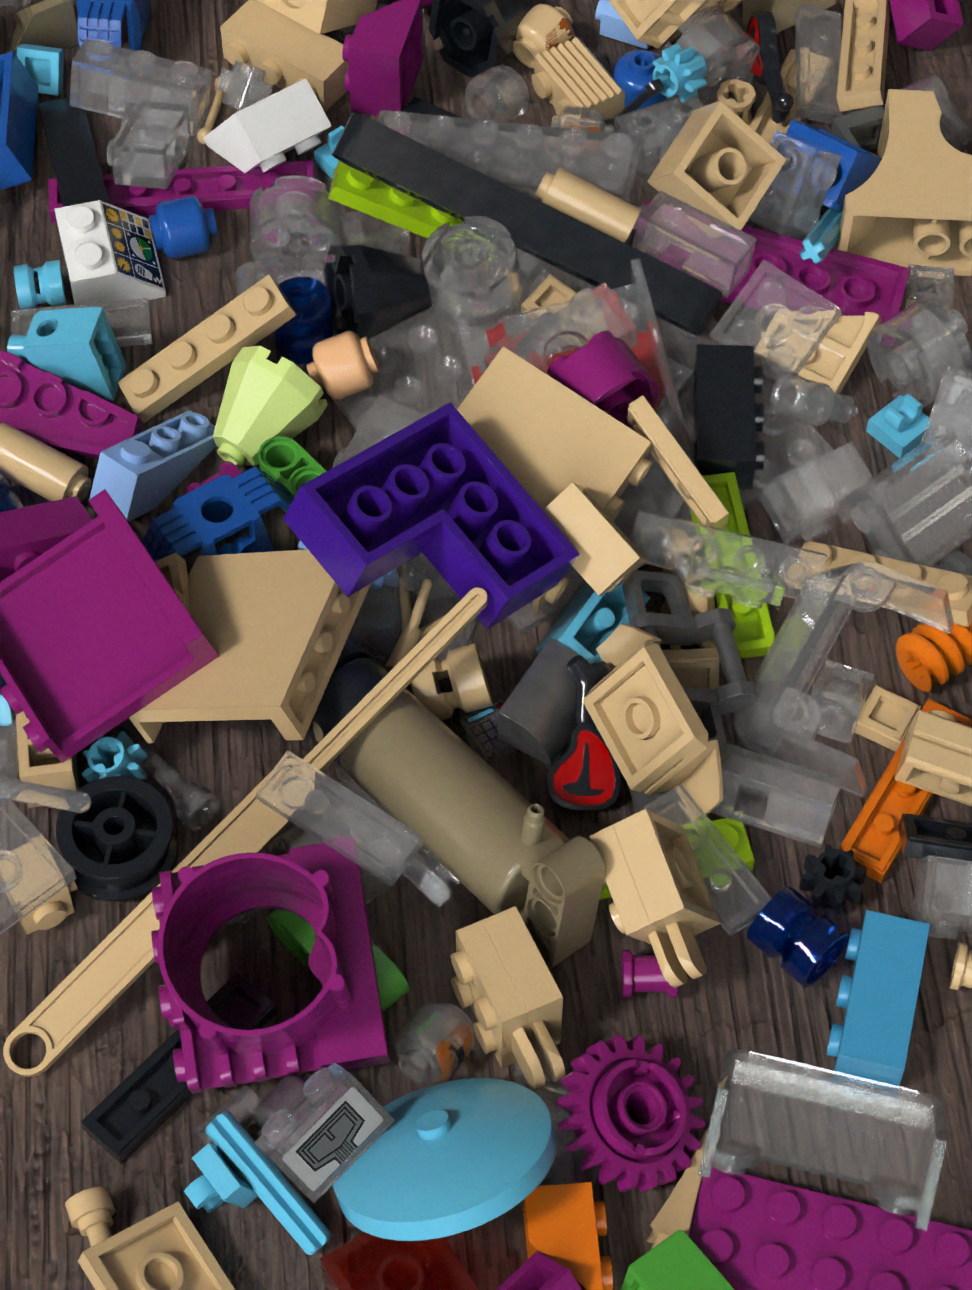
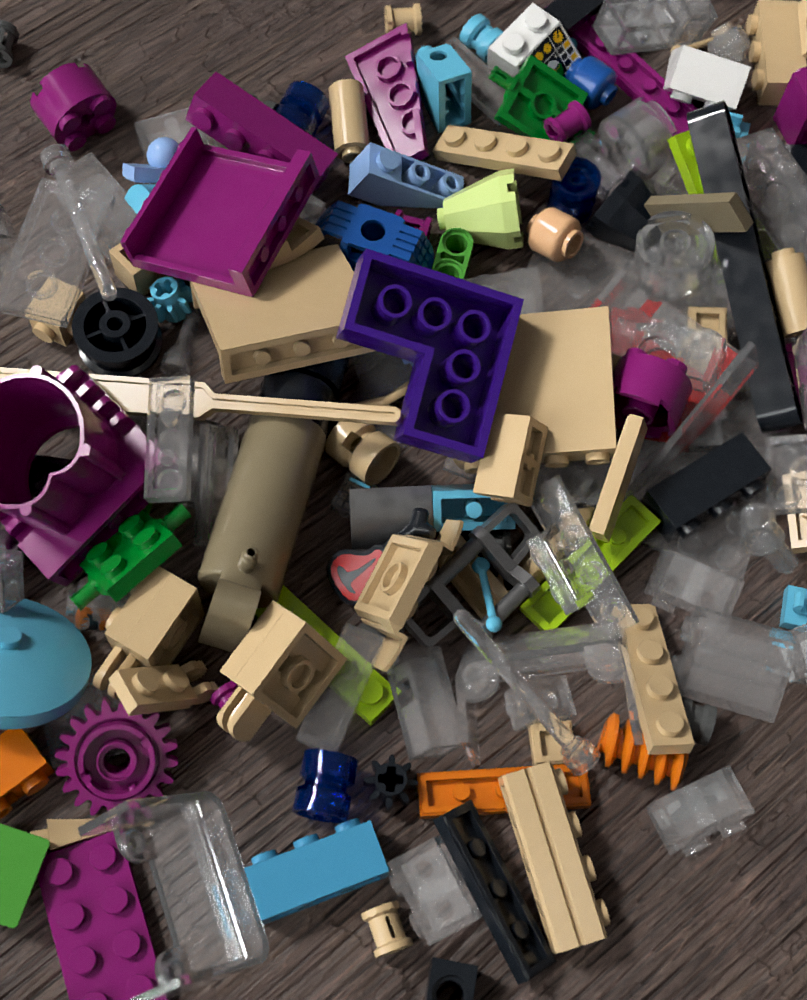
camera: 50 degrees right, 10 degrees up
(173, 282) = (533, 97): none -> green plate
(224, 271) = (568, 122): none -> magenta bush
(424, 955) = (129, 555): none -> green plate
(471, 195) = (719, 210): none -> dark tan tile
(589, 1017) = (161, 687): none -> tan hinge
(744, 670) = (481, 567): none -> medium azure hinge
(919, 690) = (577, 753): none -> clear piece

